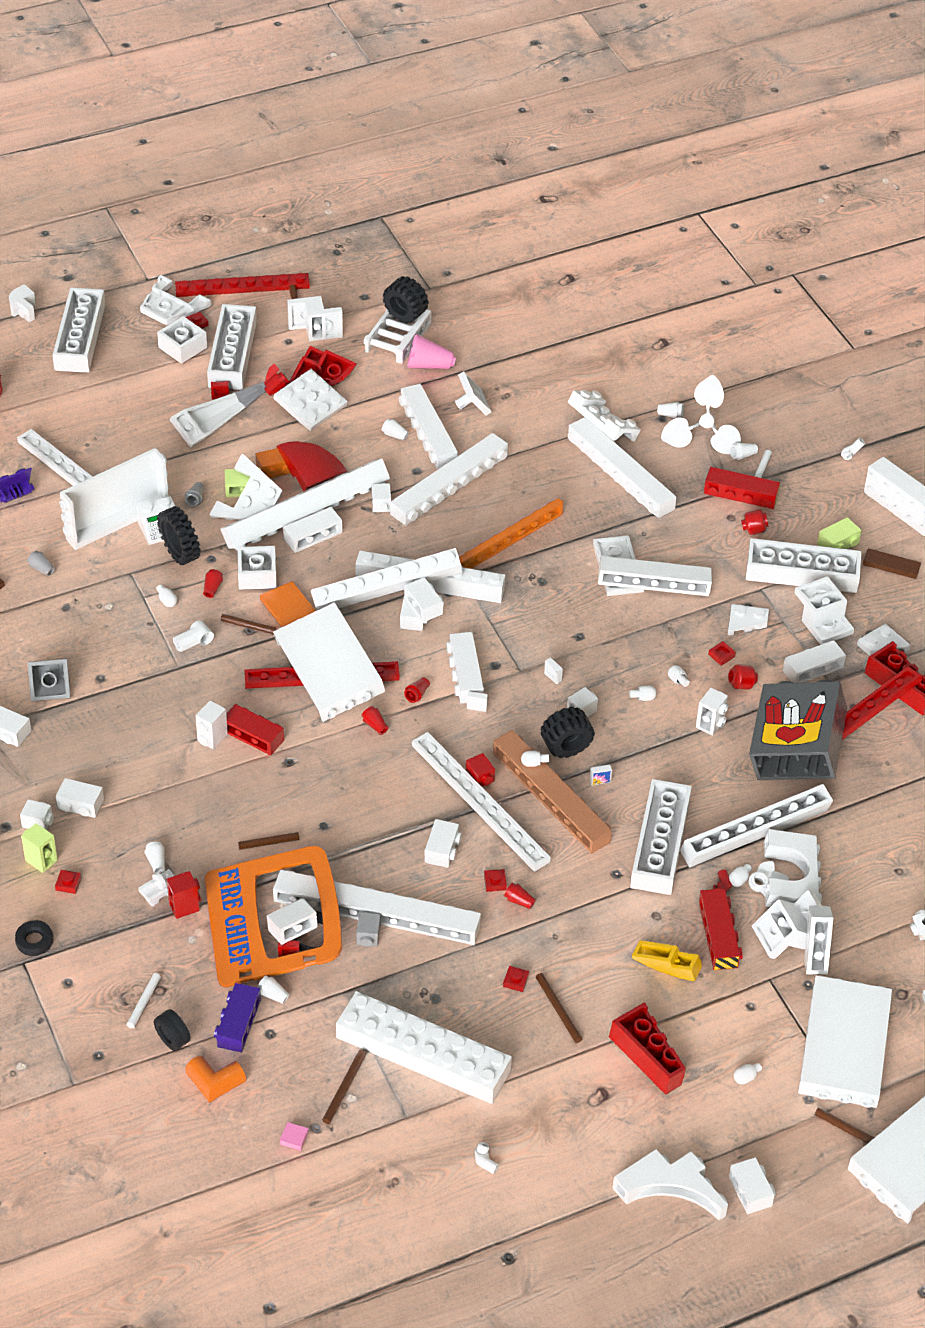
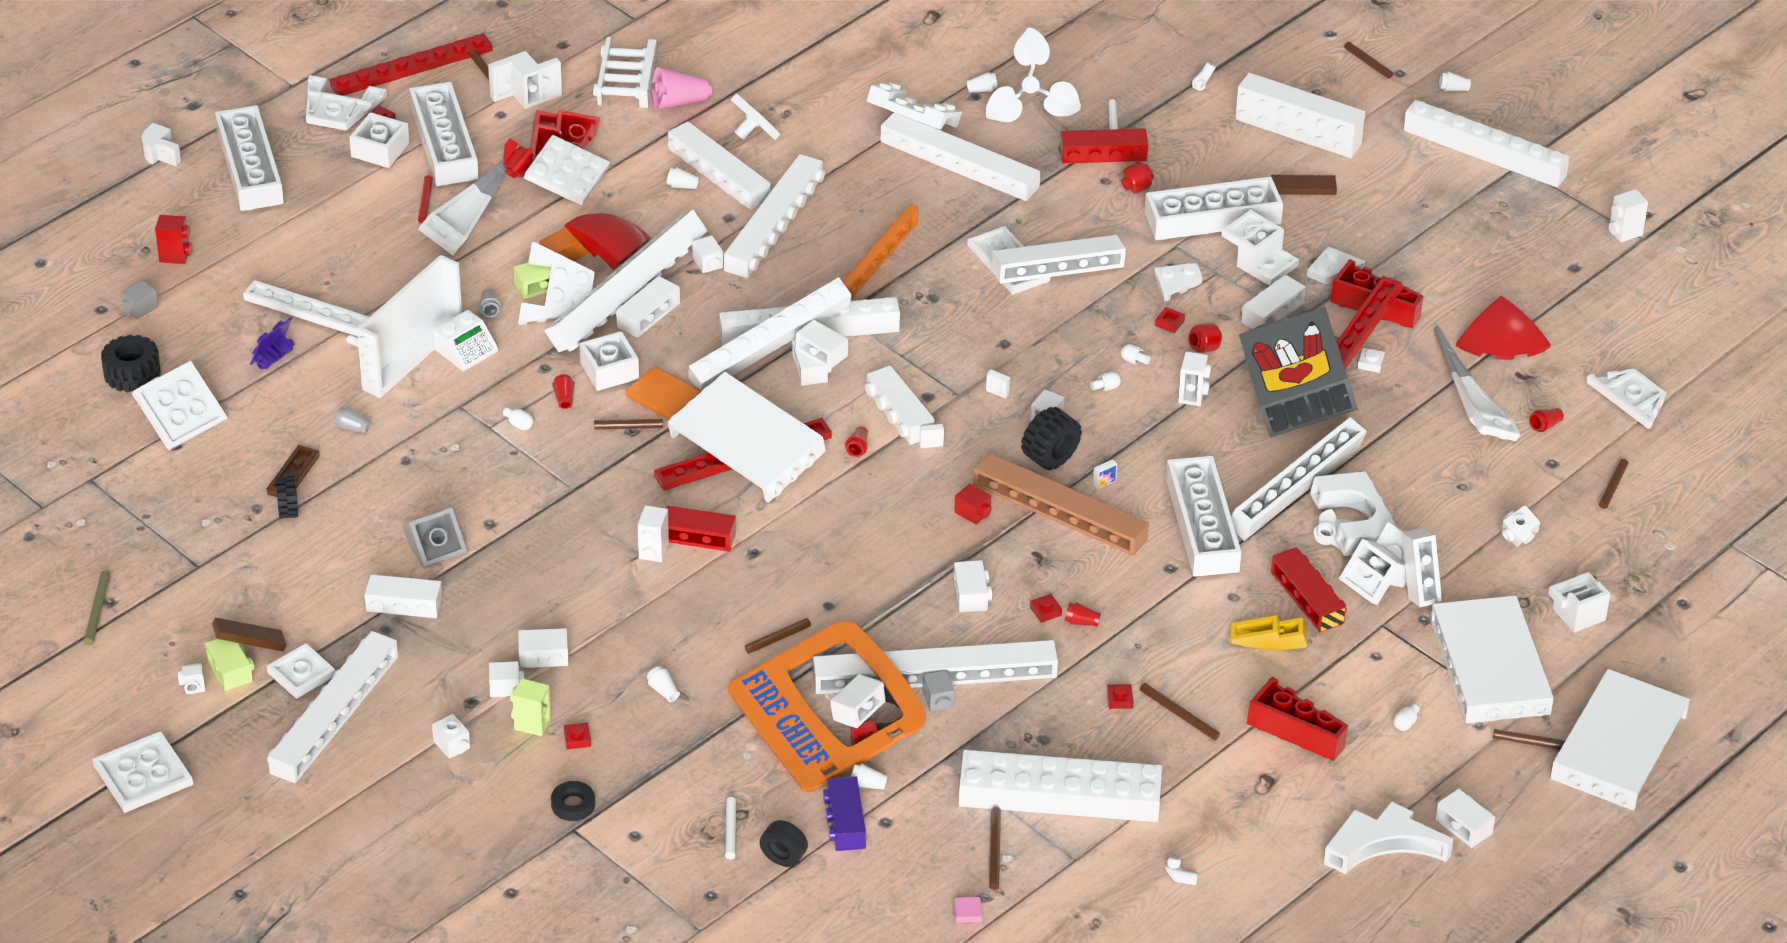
camera: 20 degrees left, 5 degrees down
(156, 888) = (686, 711): white hips -> none
(178, 535) = (518, 340): black tyre -> none
(183, 894) = (720, 709): red brick -> none
(196, 393) = (425, 197): none -> red bar
(198, 633) = (577, 448): white piece -> none
(213, 1083) = (851, 885): orange brick -> none
(219, 389) = (453, 184): red plate -> none
(374, 719) = (827, 483): red cone -> none
(405, 299) = (632, 21): black tyre -> none
(481, 802) = (989, 534): white plate -> none
(533, 758) = (1030, 473): white cylinder -> none
(724, 881) = (1287, 541): red arm -> none
(740, 875) = (1302, 533): white cylinder -> none
(743, 450) = (1083, 107): white cone -> none
(840, 535) = (1236, 167): yellowish green brick -> none
(874, 734) = (1371, 360): none -> white plate

